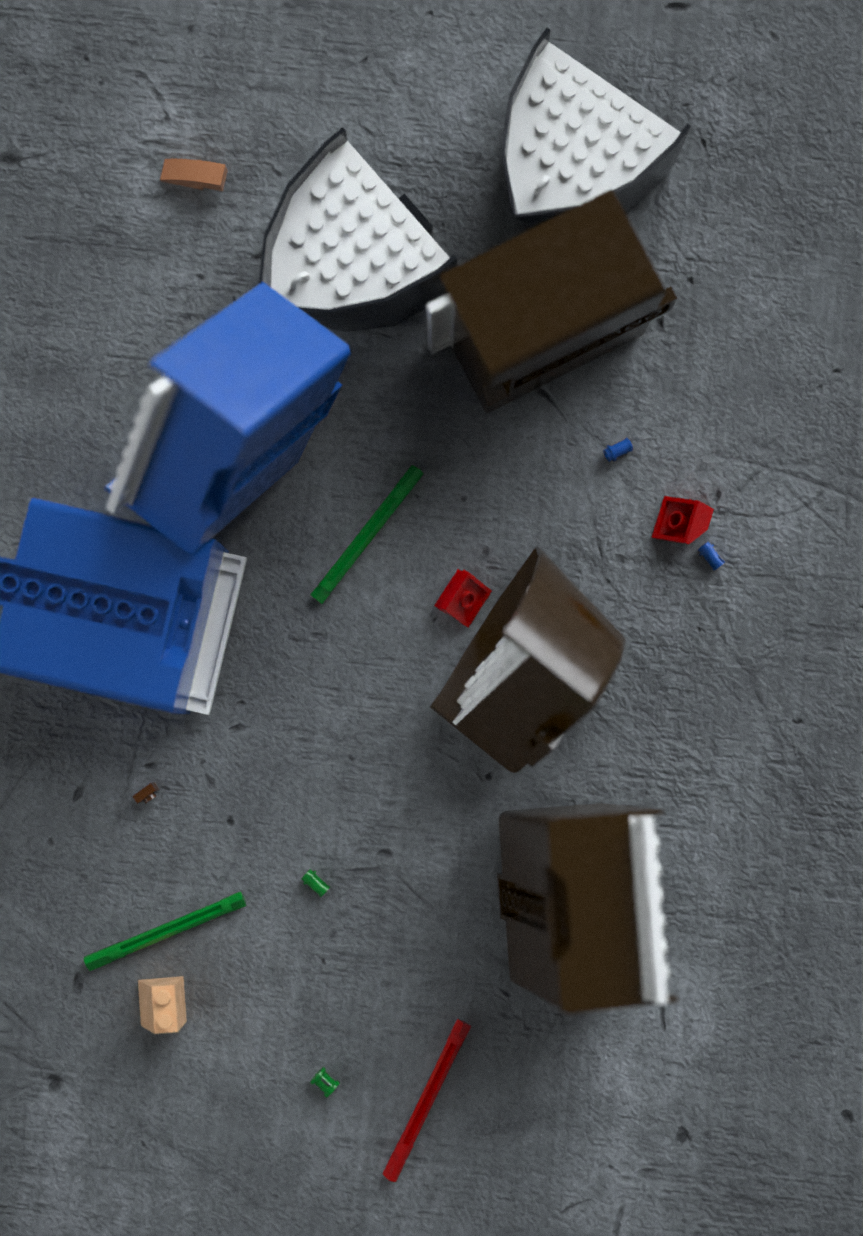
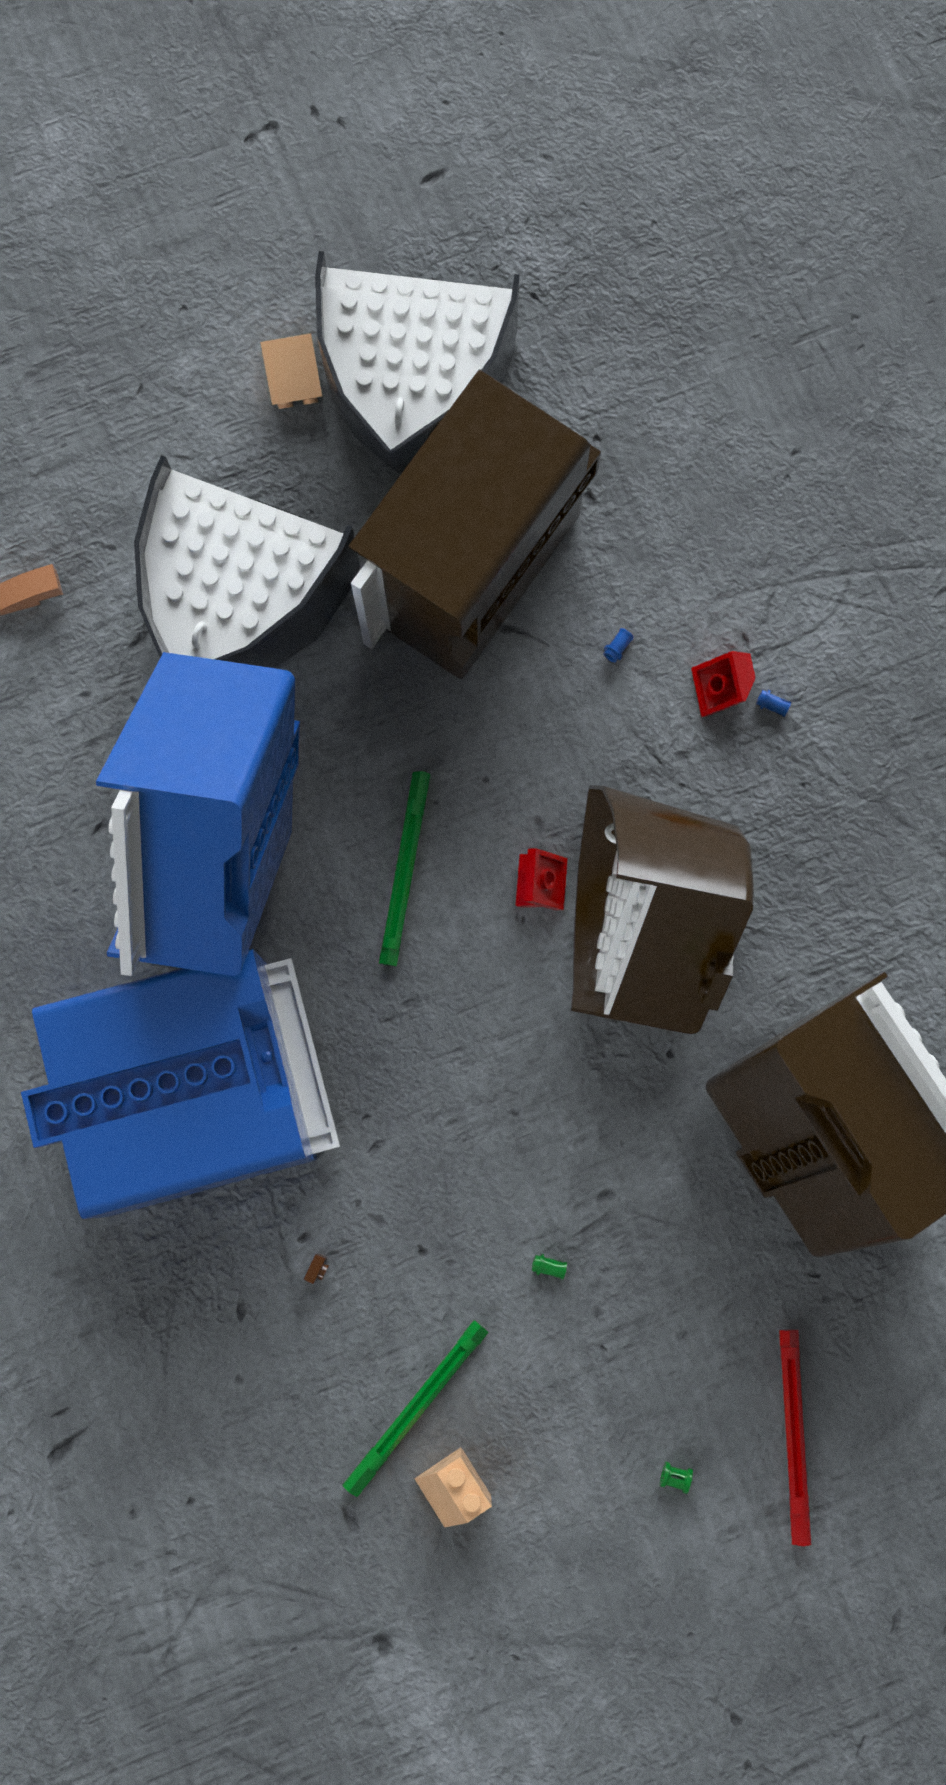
camera: 30 degrees left, 5 degrees down
(484, 106) = (291, 370): none -> light nougat slope

